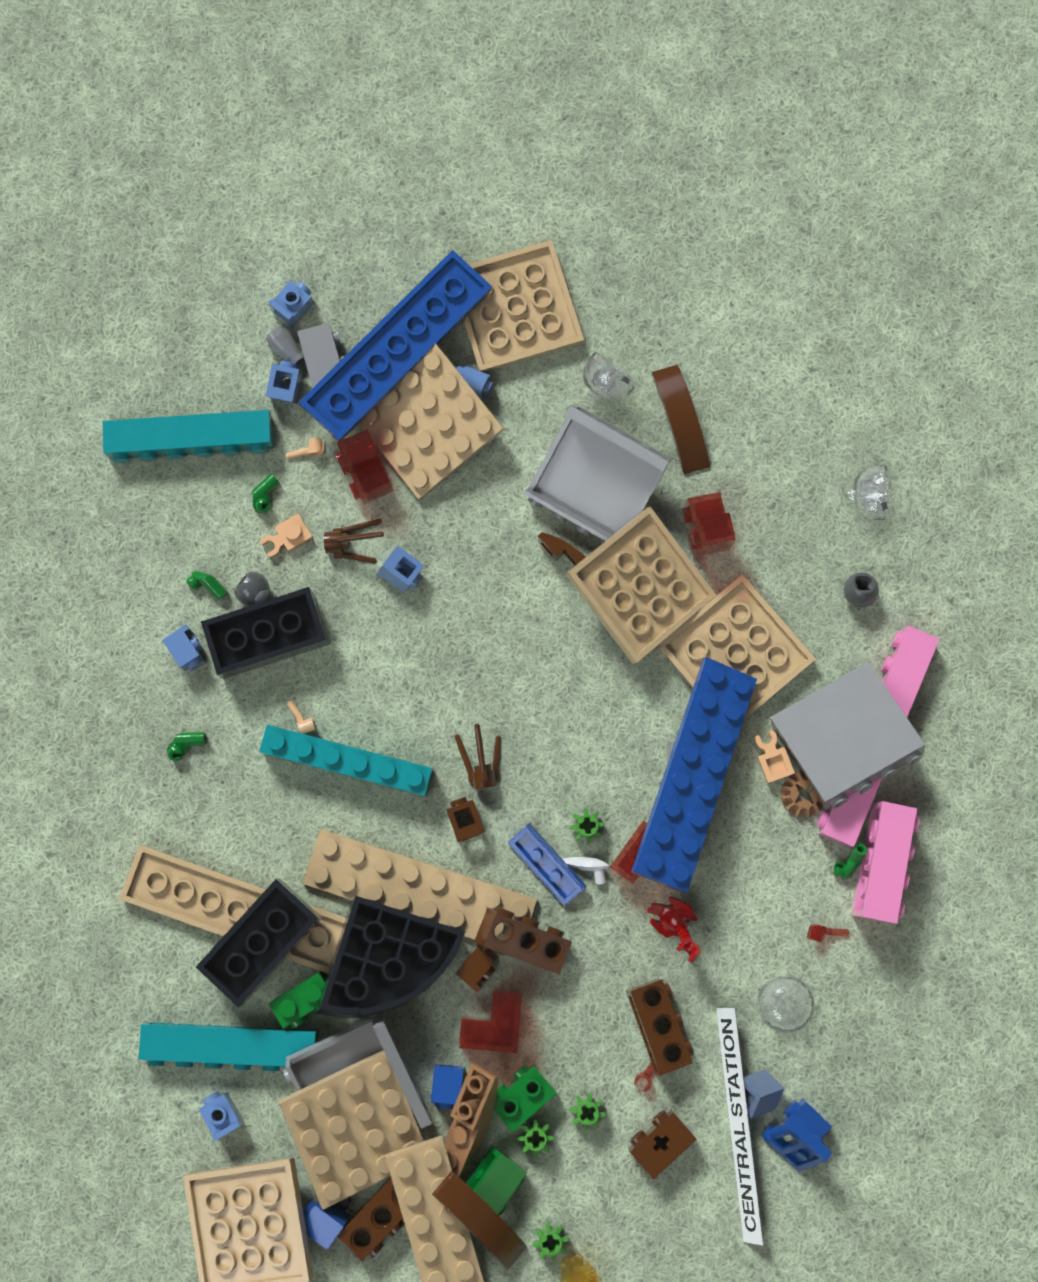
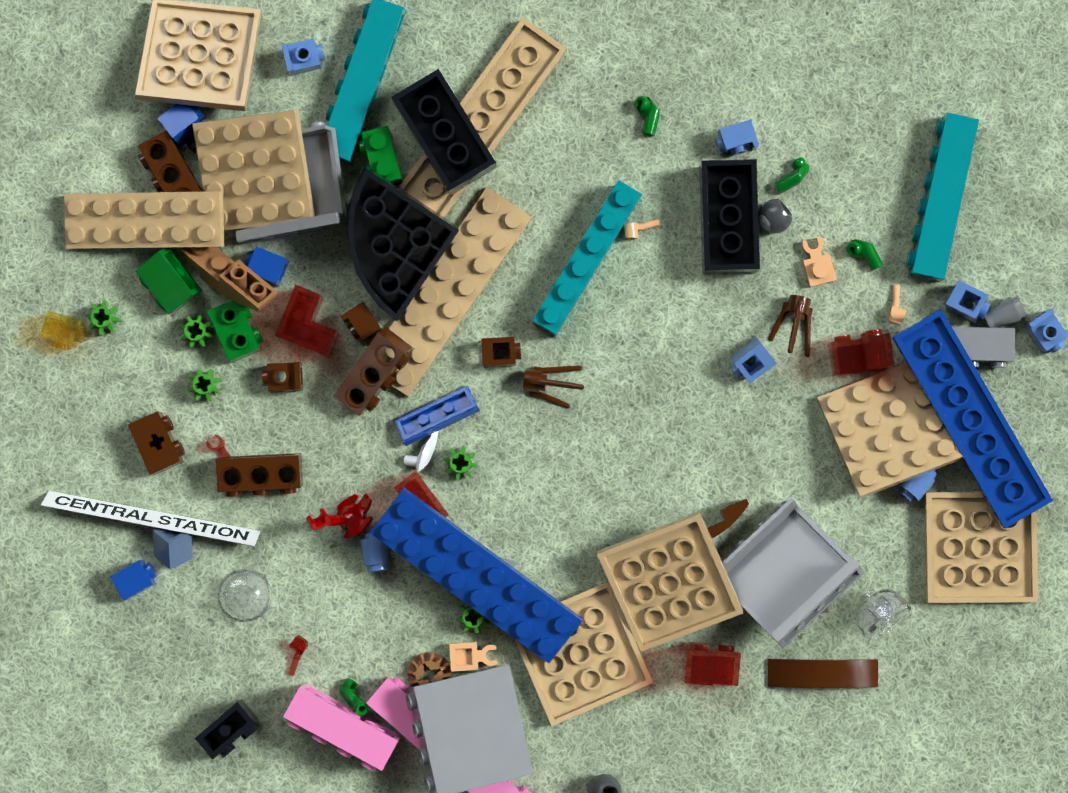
camera: 110 degrees right, 5 degrees up
(480, 1219) = (140, 259): reddish brown slope -> none
(552, 1021) = (293, 379): none -> reddish brown brick
(704, 884) = (375, 553): none -> medium blue brick
(741, 769) = (470, 622): none -> bright green gear
(802, 1151) = (111, 567): blue plate -> none
(925, 979) = (221, 734): none -> black brick

